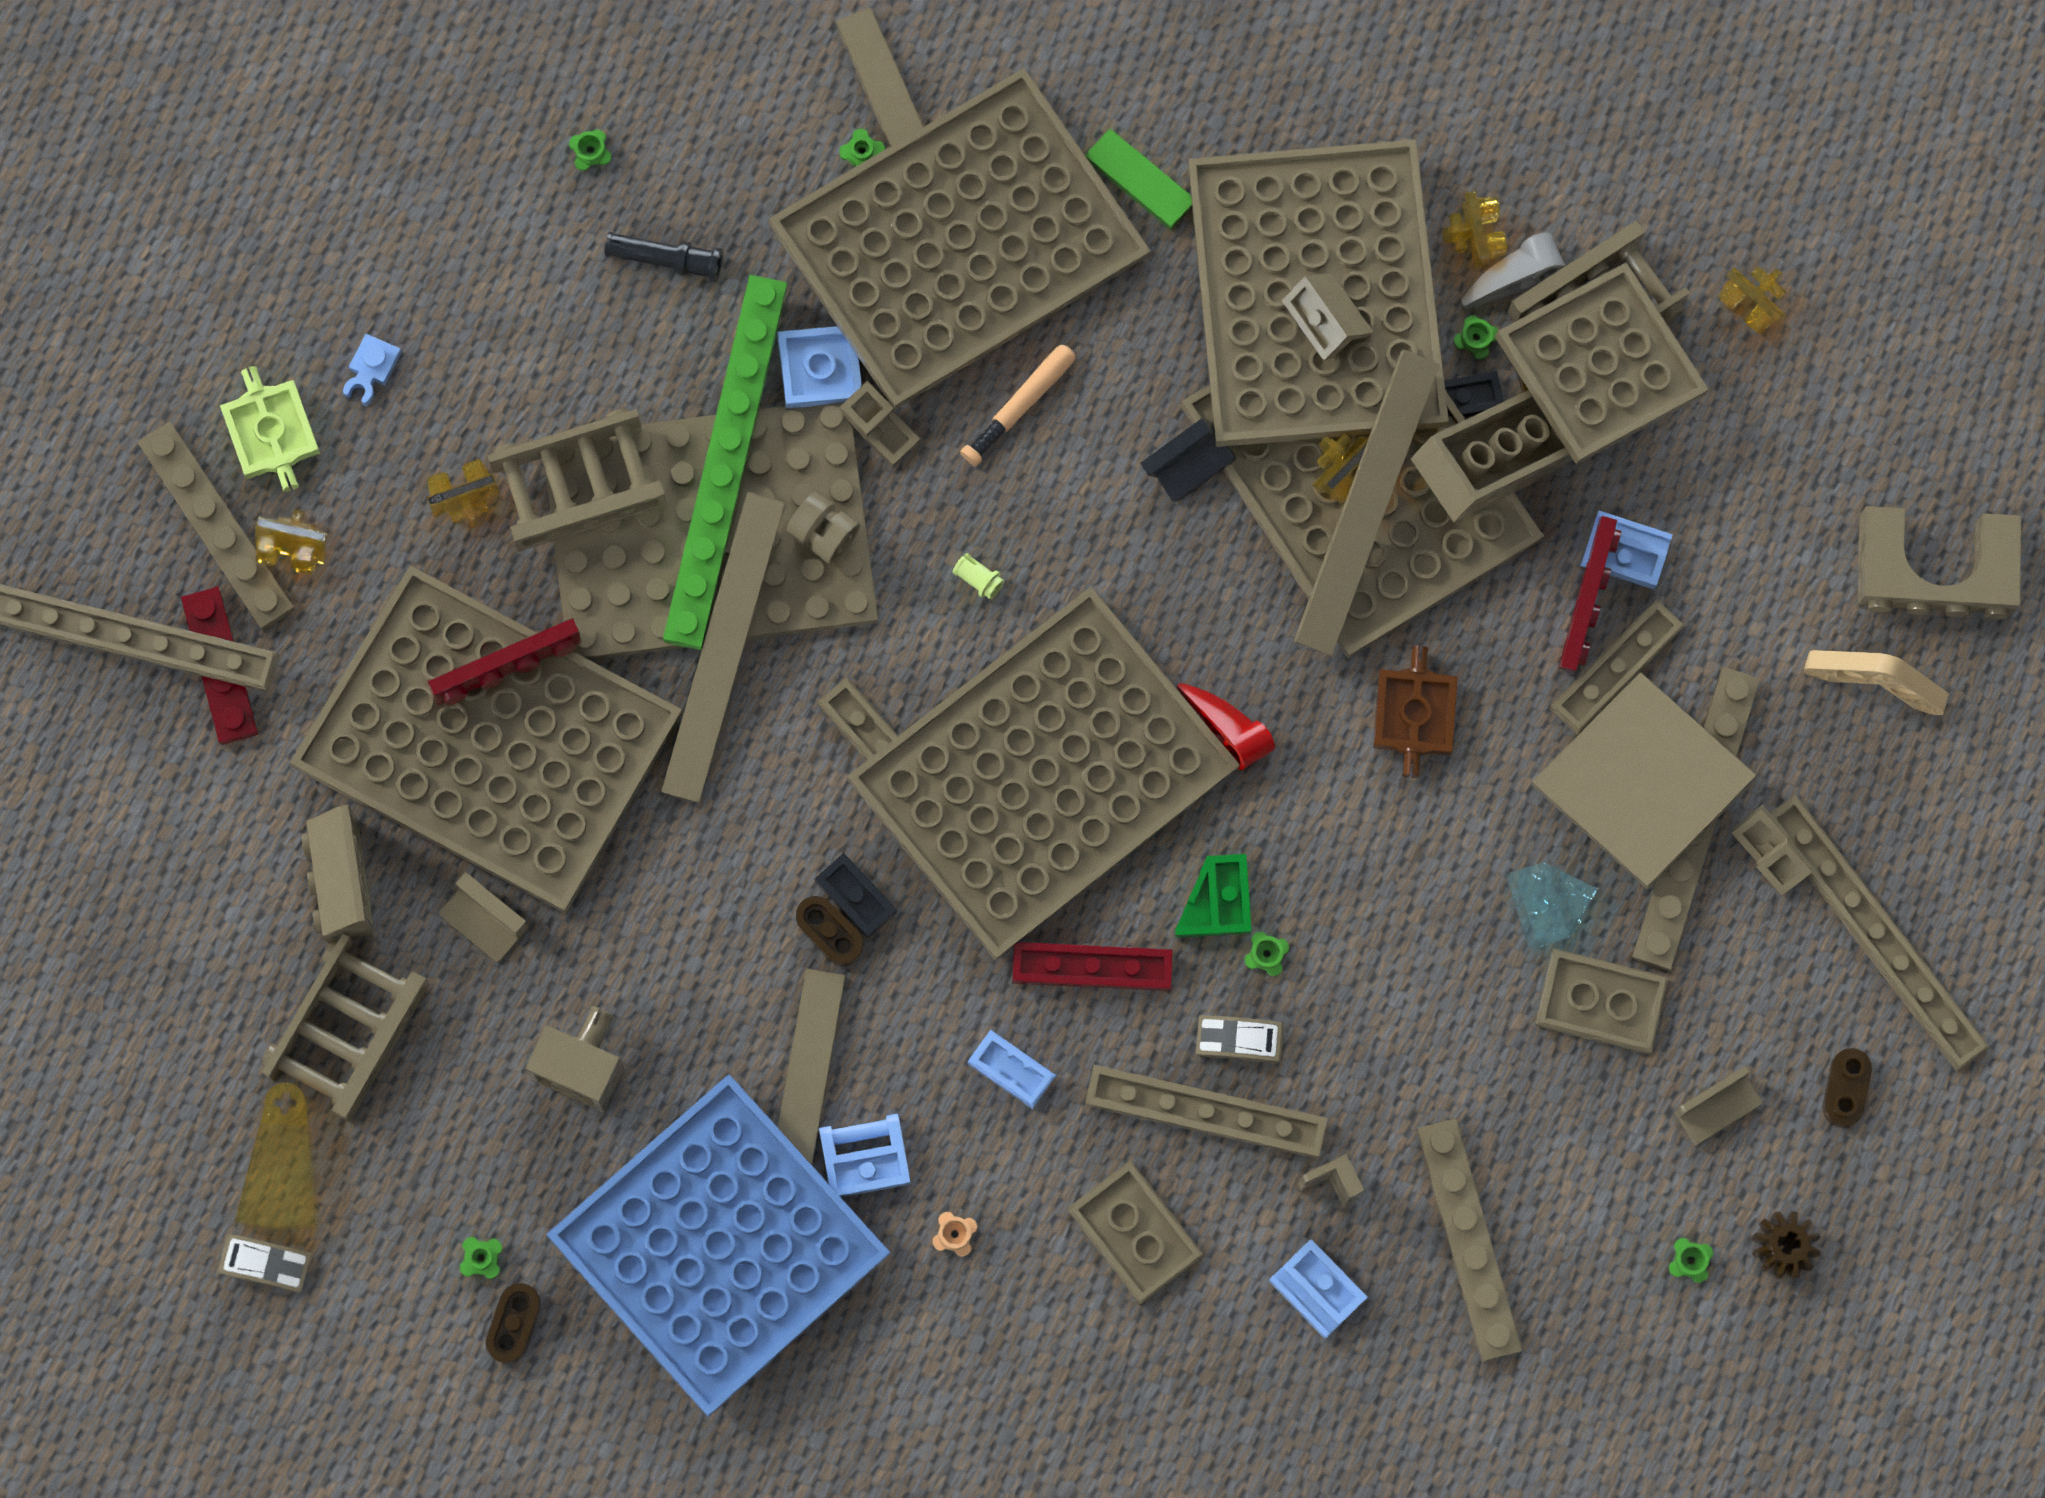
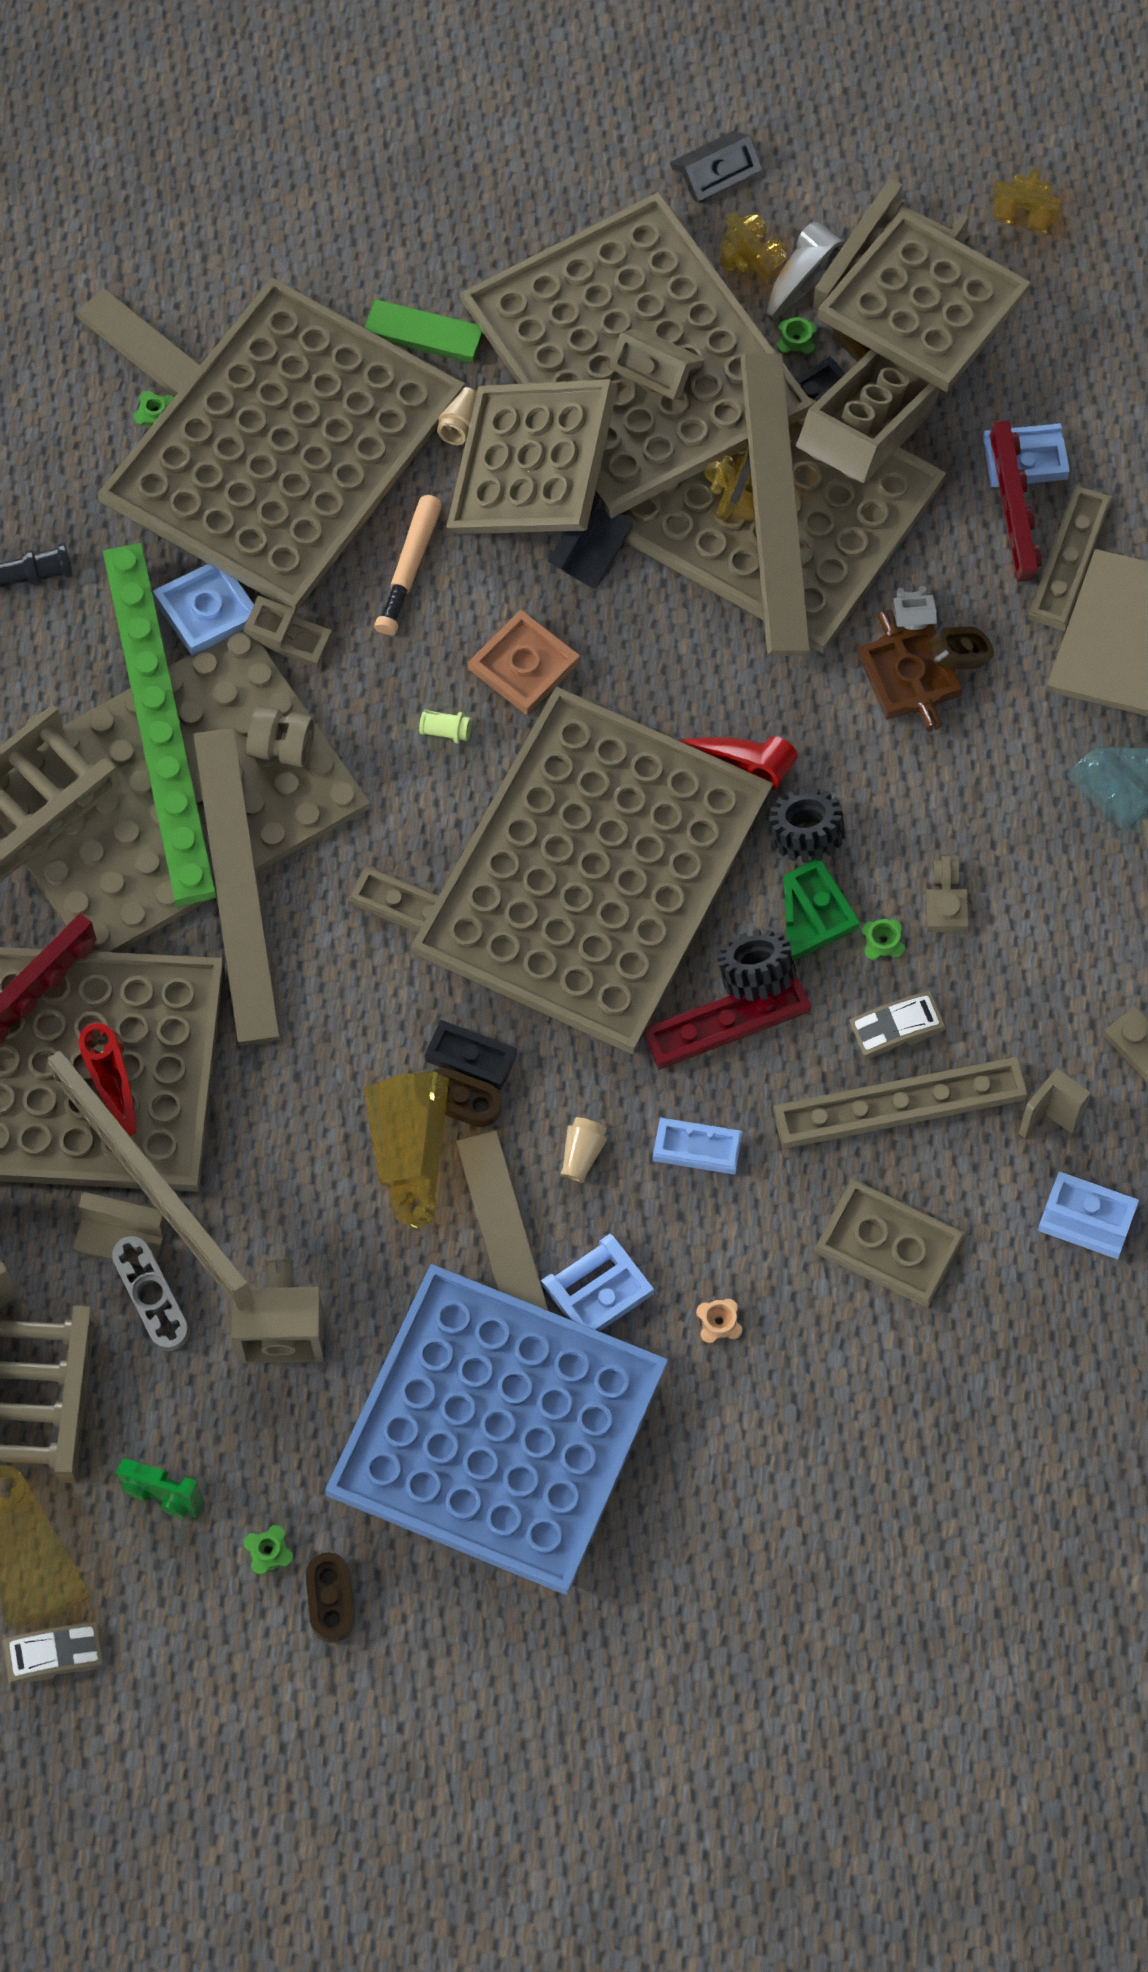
camera: 20 degrees left, 10 degrees down
(402, 1152) = (149, 1481): none -> green wing
(492, 956) = (147, 1262): none -> light grey beam
(520, 895) = (151, 1181): none -> dark tan tile
(532, 778) = (109, 1073): none -> red piece
(762, 952) = (406, 1135): none -> clear yellow piece
(910, 1026) = (582, 1147): none -> tan cone
(1075, 547) = (524, 662): none -> nougat plate
(1129, 282) = (456, 418): none -> tan cone
(1140, 915) = (757, 965): none -> black tyre
(1171, 358) = (532, 457): none -> dark tan plate
(1255, 801) = (803, 809): none -> black tyre
(1337, 949) = (946, 906): none -> dark tan plate
(1446, 656) = (914, 609): none -> light grey plate
(1470, 714) = (961, 648): none -> dark brown plate
(1488, 129) = (718, 164): none -> black panel

